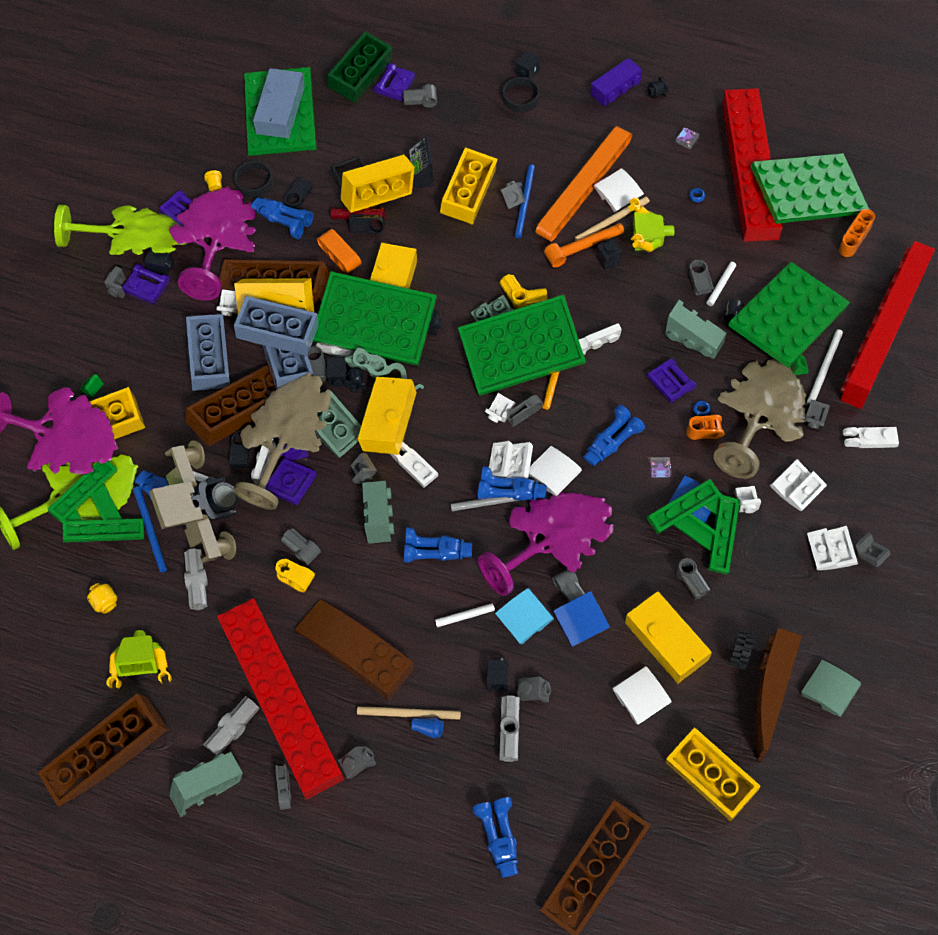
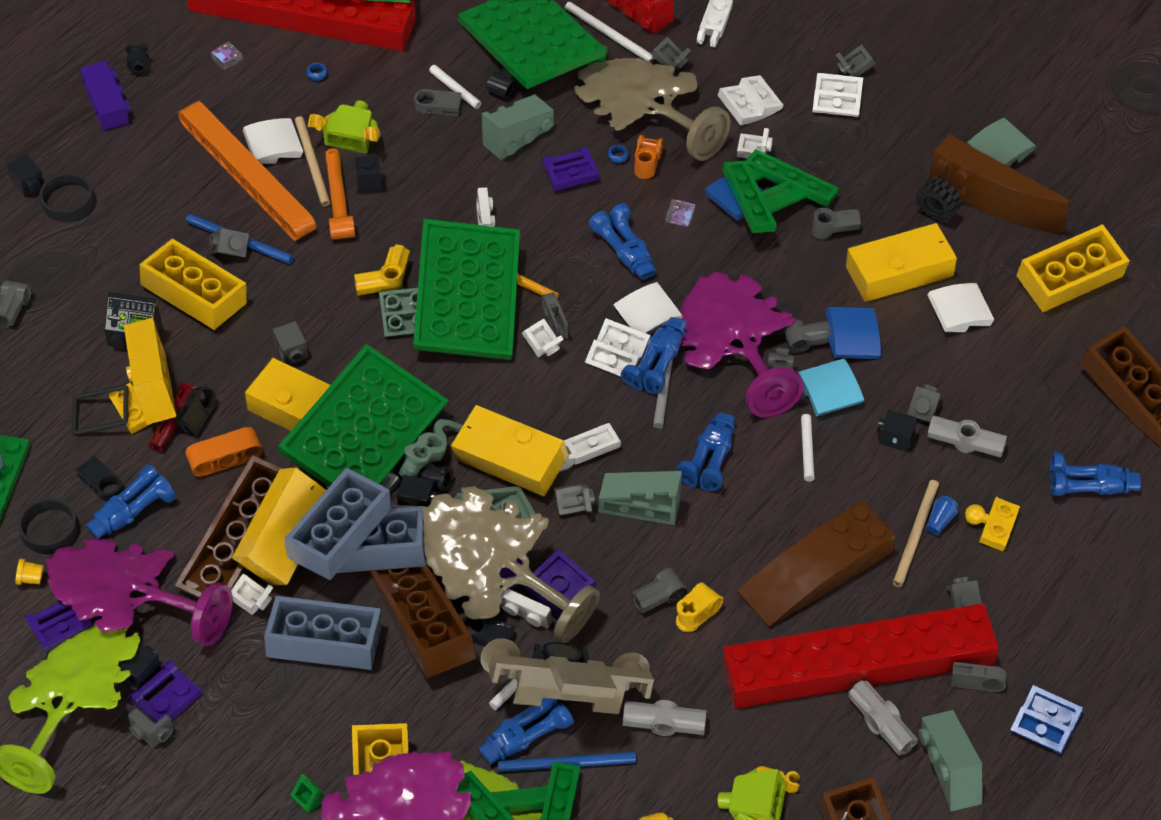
camera: 75 degrees left, 10 degrees down
(262, 848) = (1047, 719): none -> slope
(435, 772) = (997, 523): none -> yellow plate
(440, 258) = (290, 343): none -> dark grey brick
(533, 573) = (780, 358): none -> dark grey gear

